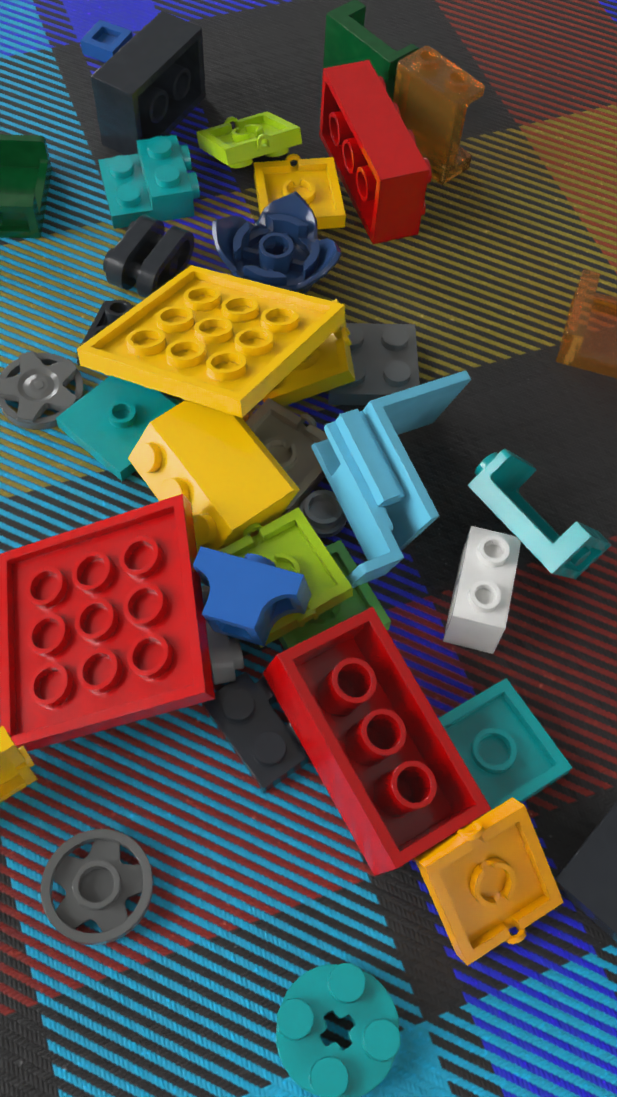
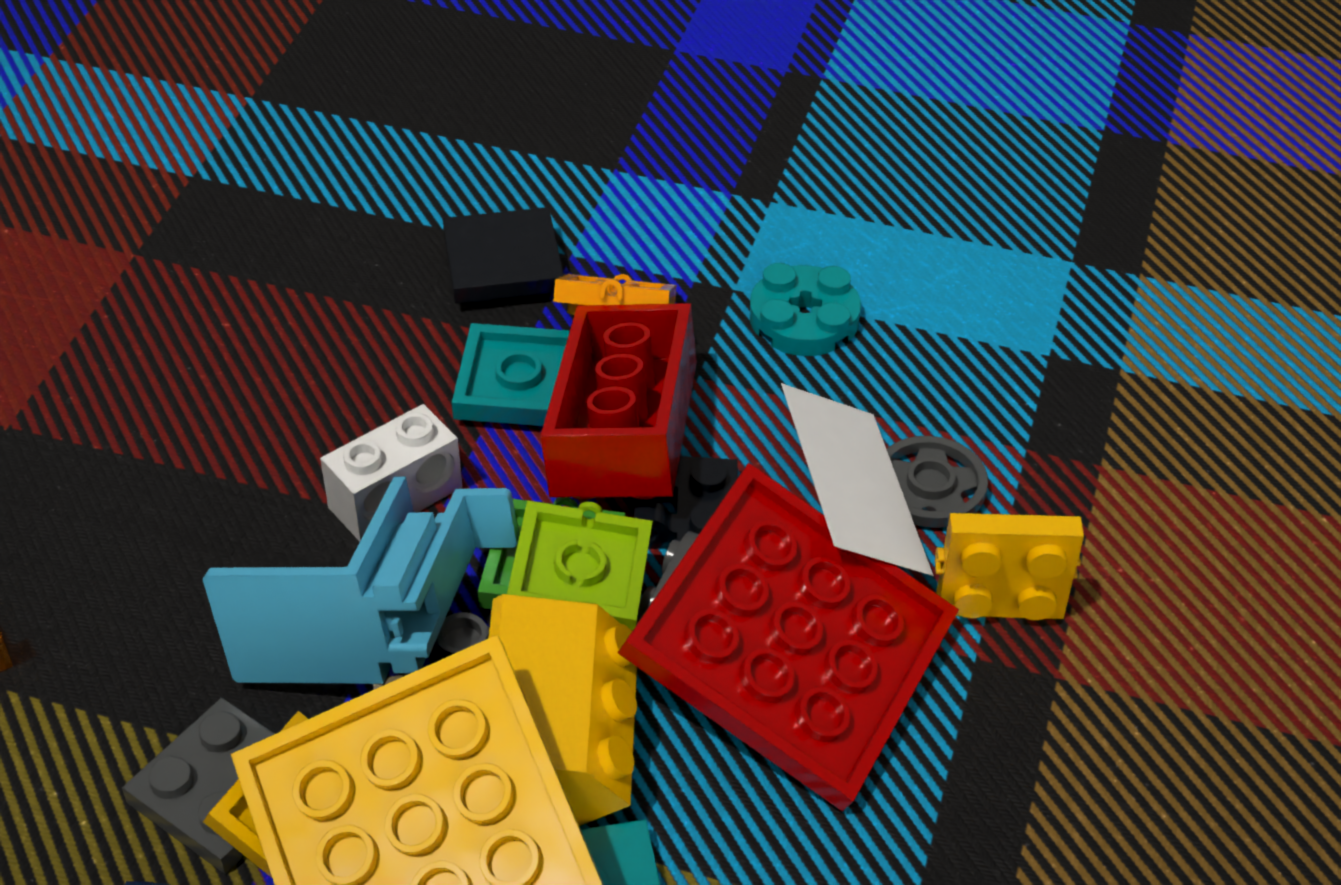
camera: 140 degrees left, 15 degrees down
(146, 803) = (855, 481): none -> white sticker
(248, 593) = (636, 527): blue brick -> none
(498, 487) = (292, 449): teal panel -> none

